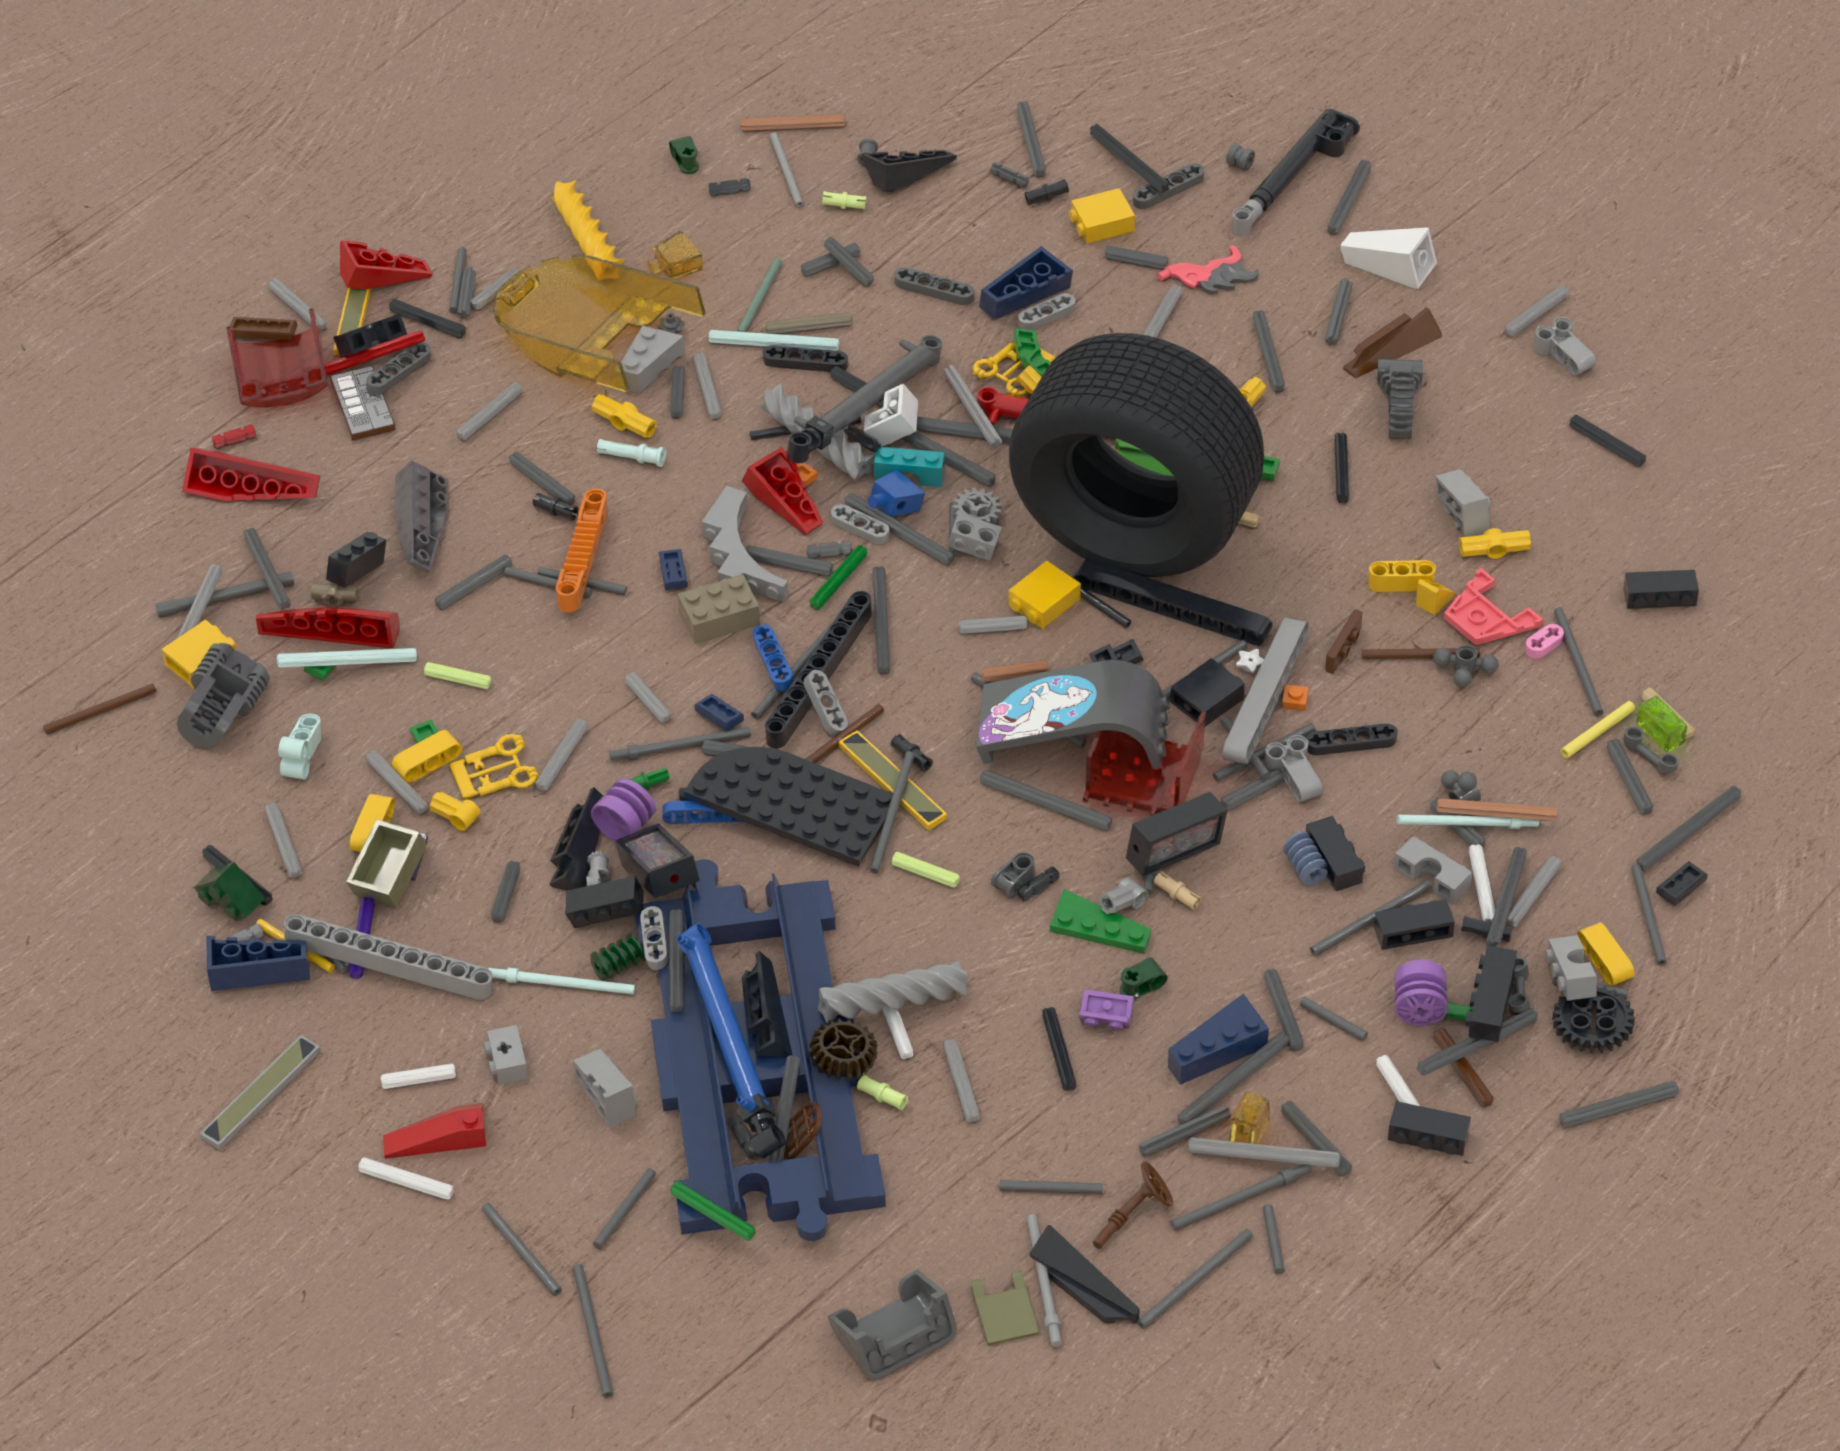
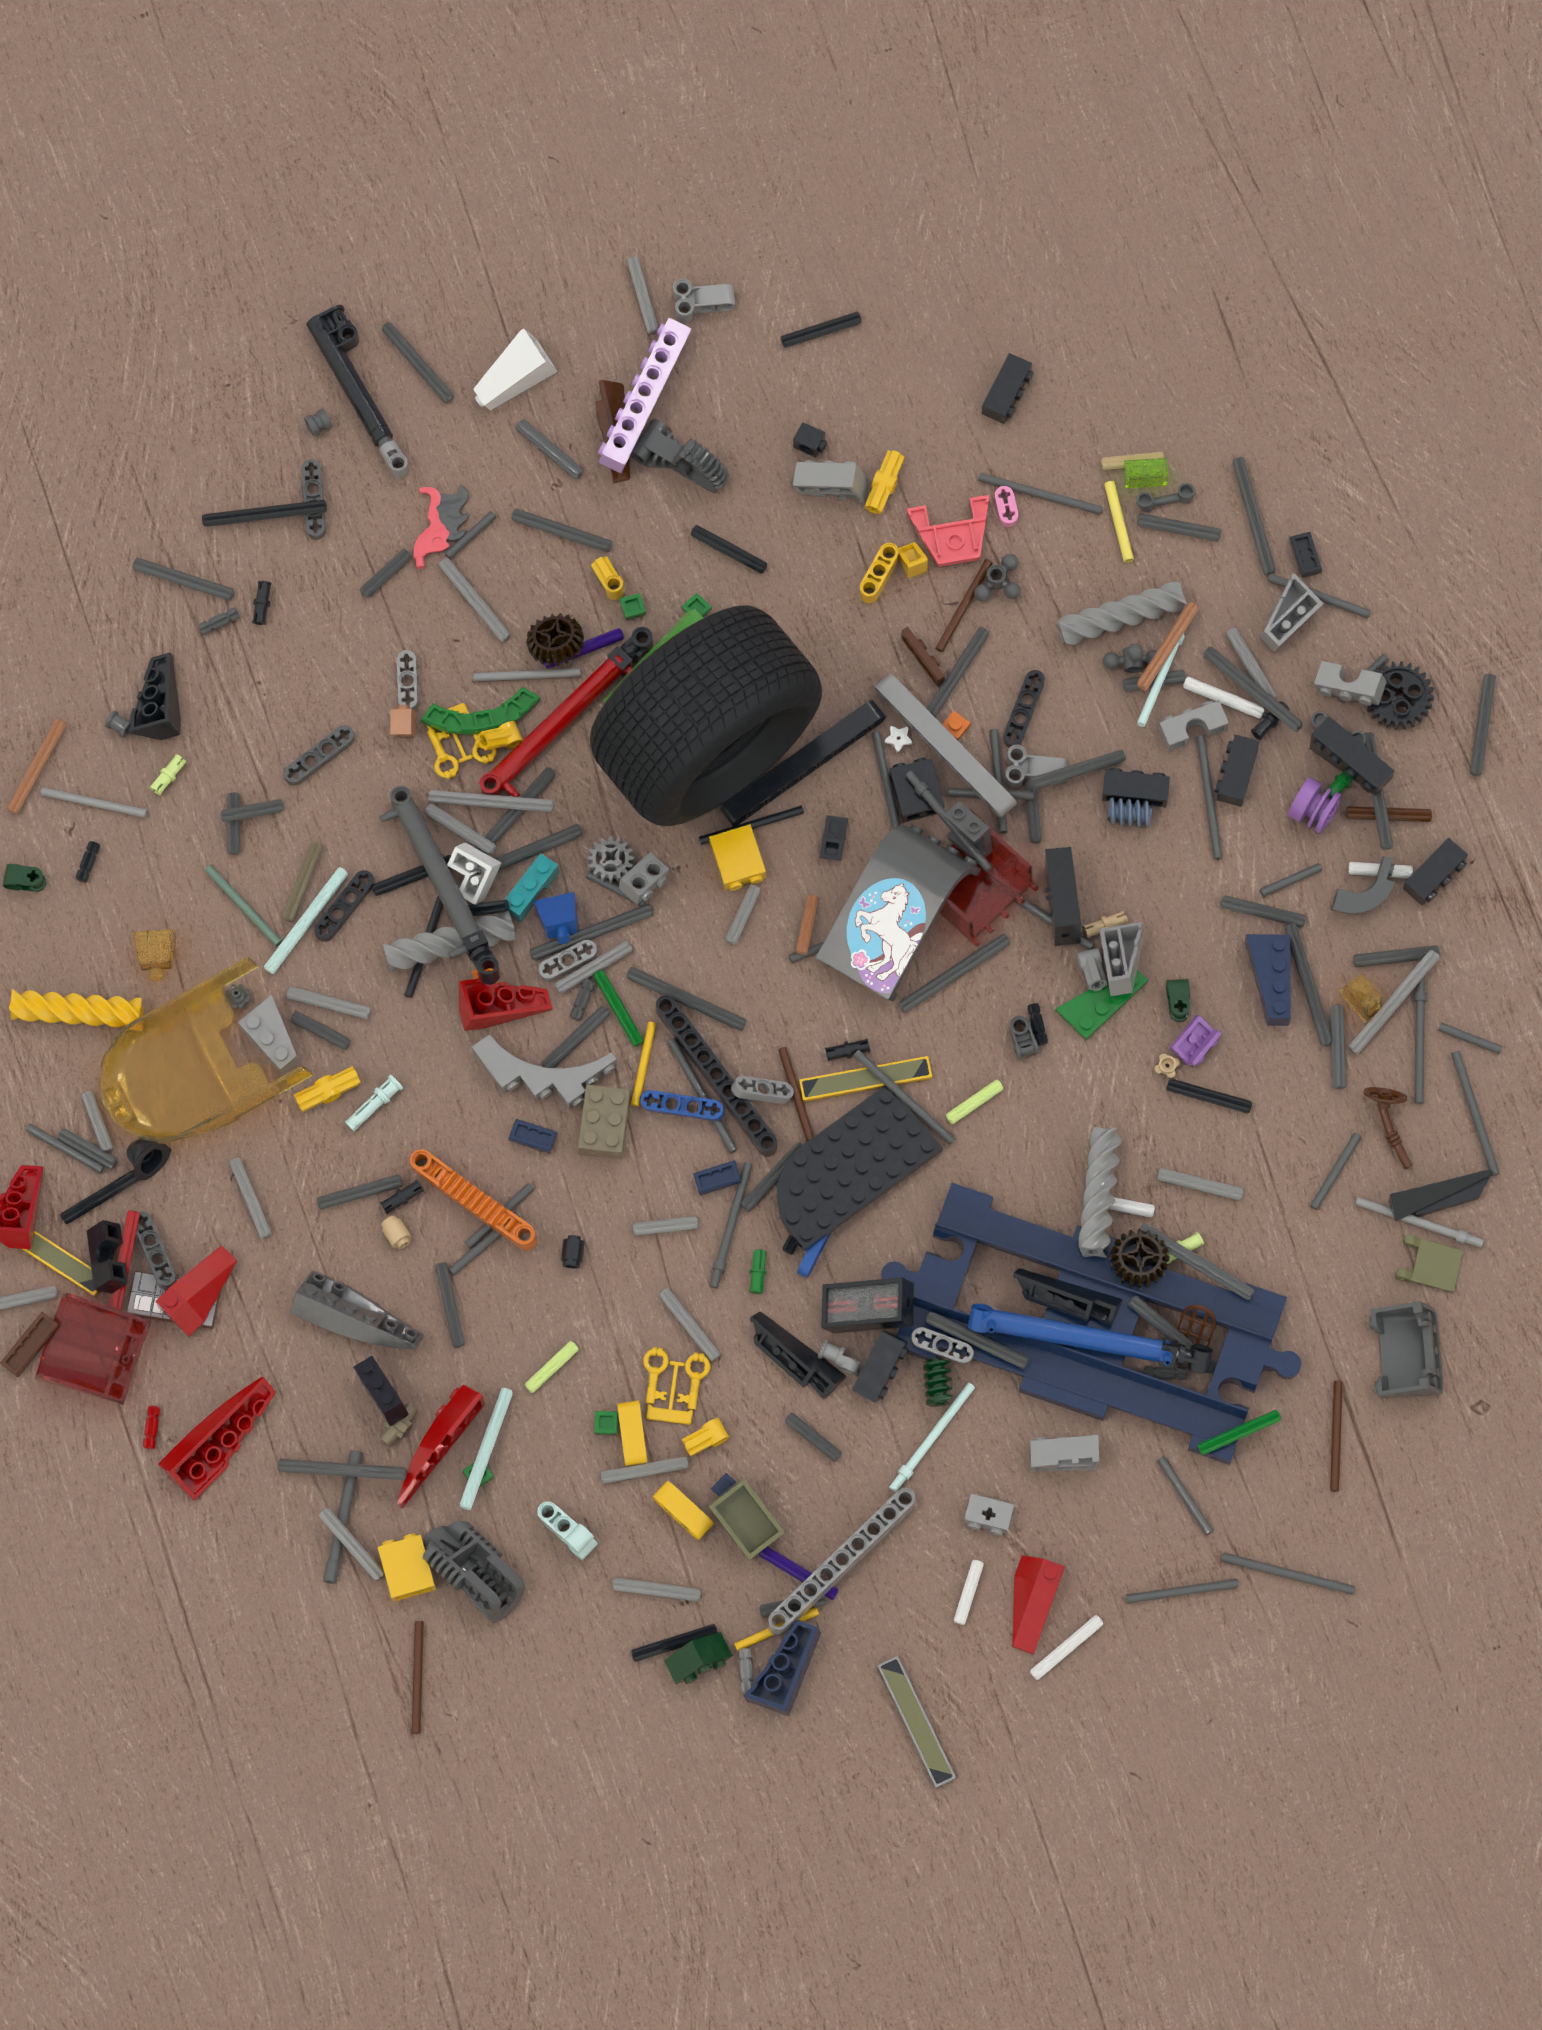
camera: 60 degrees left, 25 degrees up
(366, 402) = (195, 1293): none -> red wedge
(478, 327) = (147, 1157): none -> black piece
(518, 515) = (396, 1232): none -> tan brick
(578, 641) = (572, 1251): none -> black brick
(623, 809) = (794, 1308): medium lavender wheel -> none
(766, 1308) = (1336, 1436): none -> reddish brown piece
(801, 616) = (644, 1059): none -> yellow bar
(871, 1105) = (1201, 1264): none -> dark grey axle
(872, 545) = (593, 967): none -> light grey axle
(931, 398) = (460, 829): none -> light grey axle
(1003, 319) = (403, 721): none -> nougat brick
(1026, 283) = (370, 680): dark blue wedge -> none
(1067, 995) = (1172, 1062): none -> tan plate
(1102, 216) = (321, 573): yellow brick -> none
(1148, 906) = (1122, 954): none -> light grey wedge
(1185, 715) = (971, 827): none -> dark grey panel
(1205, 687) = (923, 790): none -> dark grey bar
(1218, 296) = (470, 535): none -> dark grey bar
(1316, 795) = (1076, 769): none -> dark grey axle
(1349, 675) = (957, 671): none -> dark grey axle
(1365, 1085) = (1352, 902): none -> dark grey arch
(1437, 341) = (617, 457): none -> brick
(1492, 474) = (809, 440): none -> black brick
(1500, 765) = (1113, 614): none -> light grey piece
(1606, 890) = (1290, 612): none -> light grey wedge
(1606, 954) = (1343, 650): yellow beam -> none

